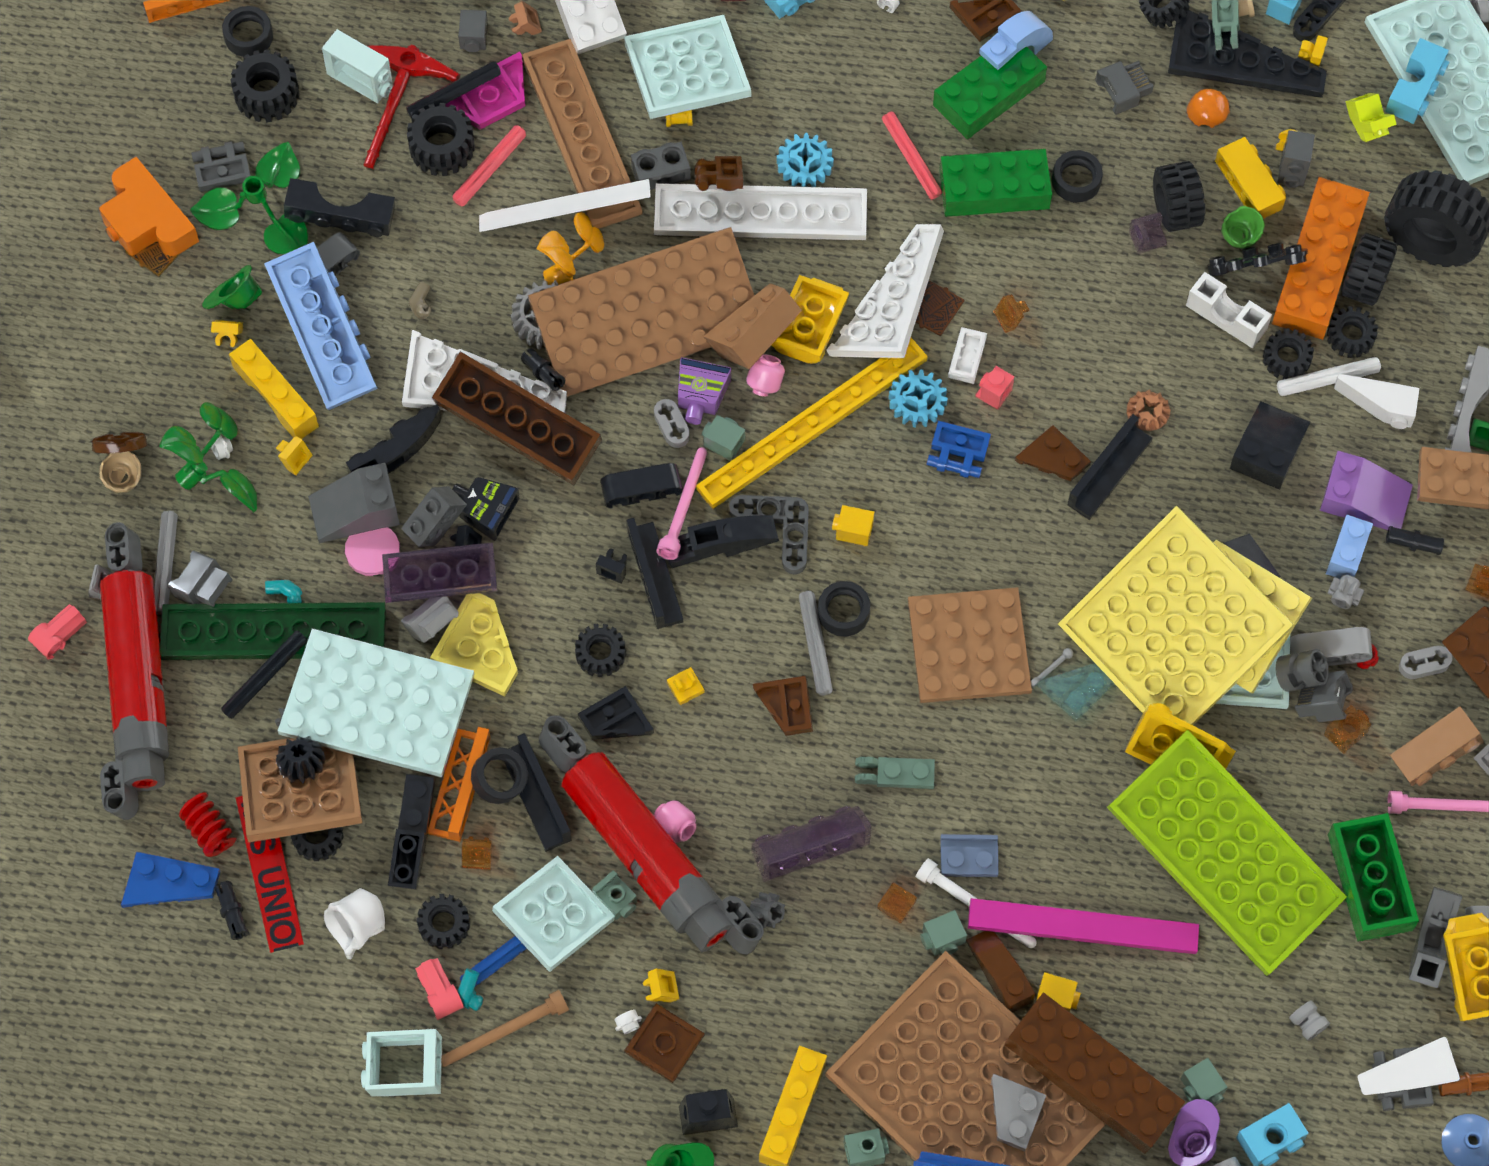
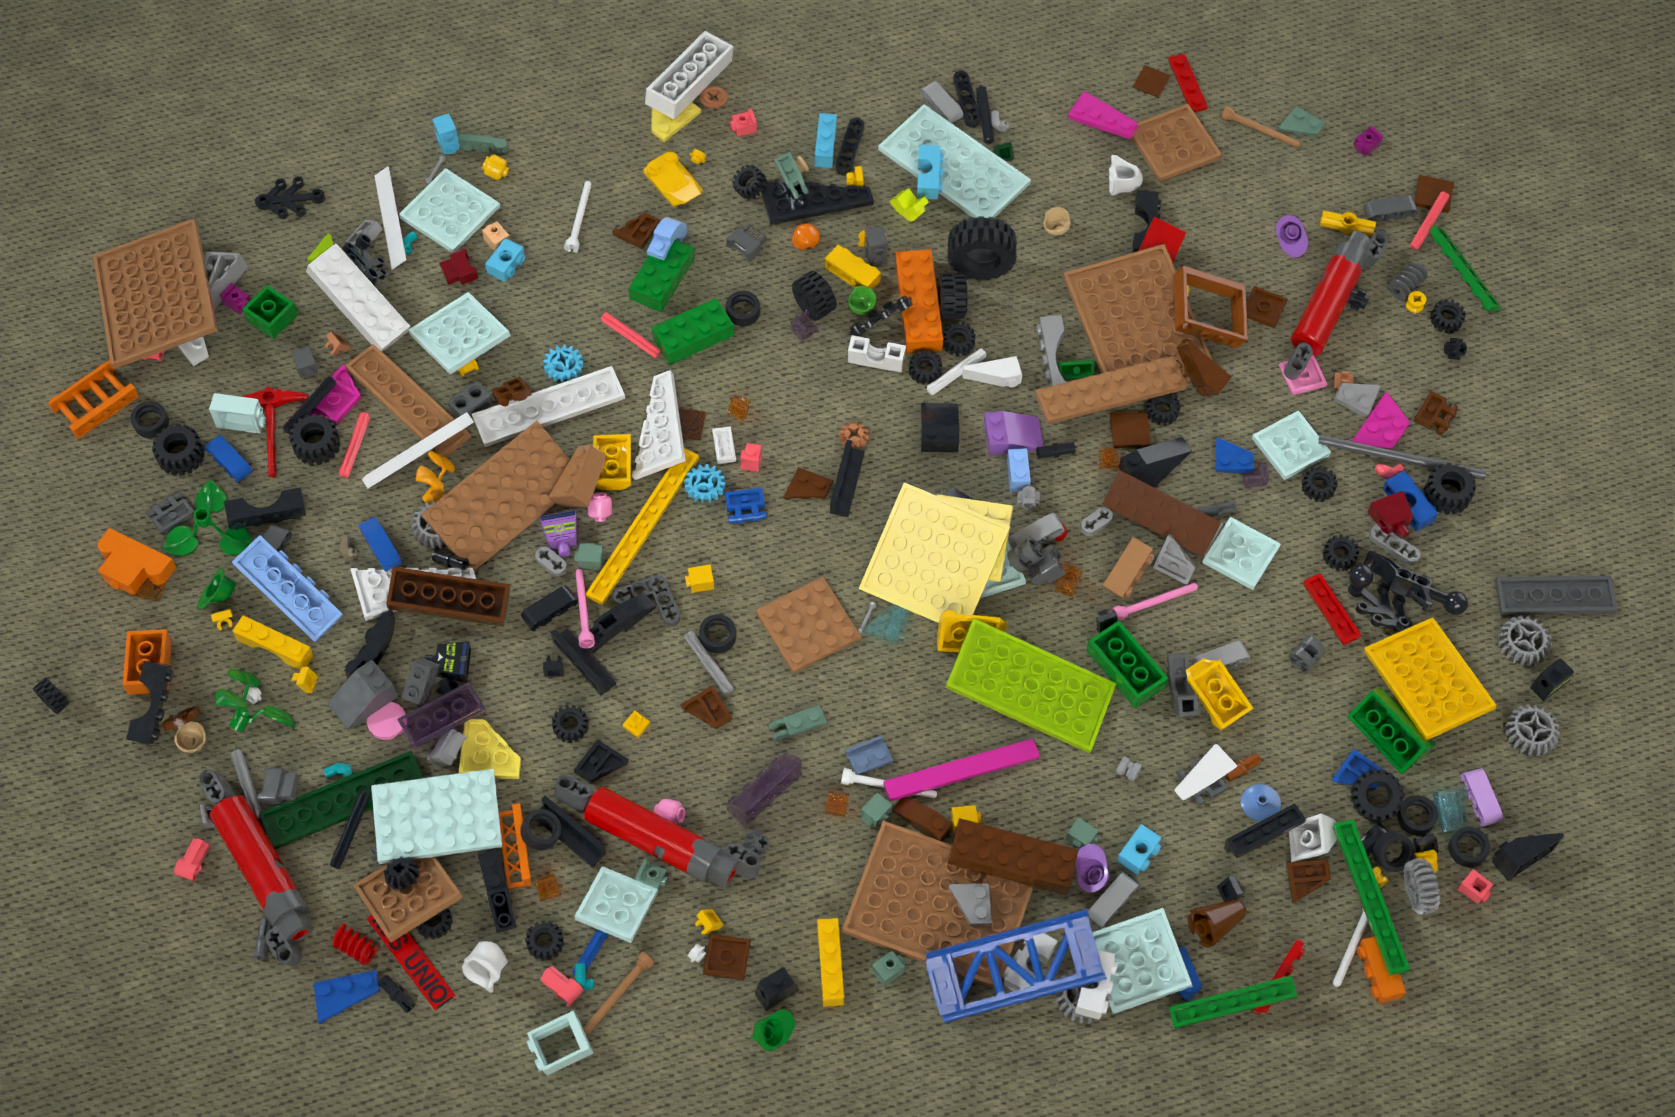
camera: 25 degrees left, 5 degrees down
(92, 781) = (261, 946): none -> dark grey axle
(106, 378) = (155, 678): none -> black arch
(109, 351) = (141, 647): none -> orange brick
(322, 122) = (227, 456): none -> blue beam
(463, 313) = (380, 544): none -> blue slope
(1372, 804) = (1105, 620): none -> black tile

